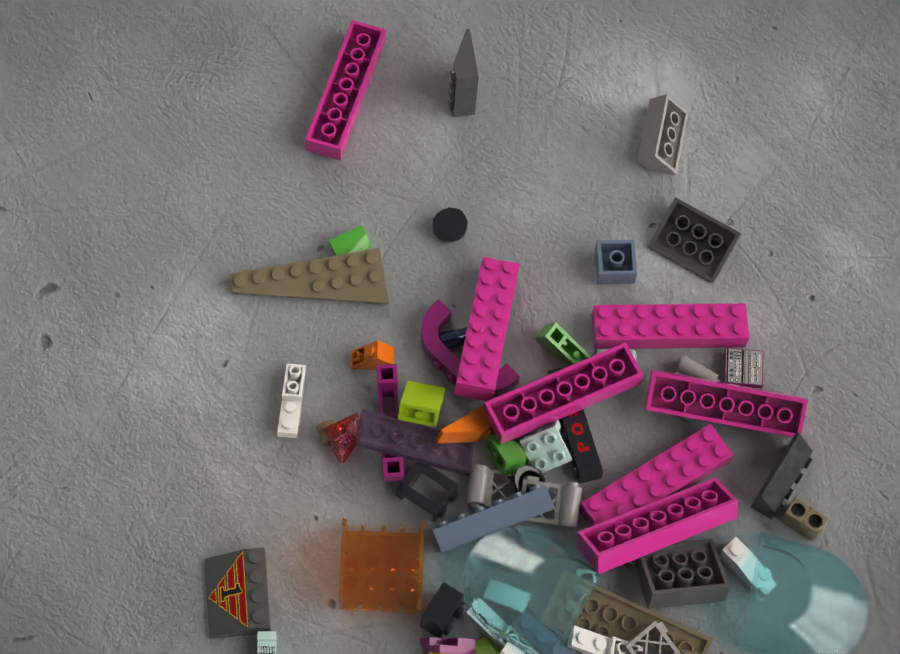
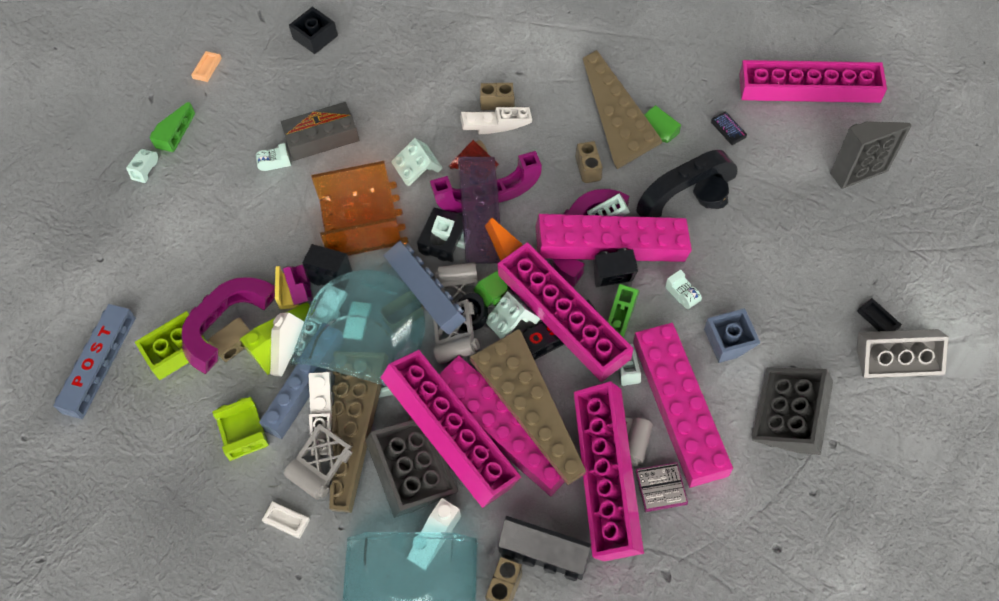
camera: 85 degrees right, 5 degrees down
(86, 572) = (313, 30): none -> black brick
(256, 409) = (504, 96): none -> dark tan piece
(322, 499) = (414, 161): none -> light aqua bracket
(371, 332) = (591, 174): none -> dark tan piece
(371, 355) = (557, 165): orange slope -> none
(373, 184) = (728, 128): none -> black tile
(421, 403) = (519, 202): lime panel -> none
(425, 485) = (442, 229): none -> light aqua slope
(433, 211) = (676, 180): none -> black arch
(445, 308) = (612, 202): none -> light aqua slope
(523, 336) = (614, 267): none -> black slope
(553, 287) = (683, 290): none -> light aqua leg
(621, 139) = (878, 316): none -> black tile
(624, 455) = (520, 386): none -> dark tan wing

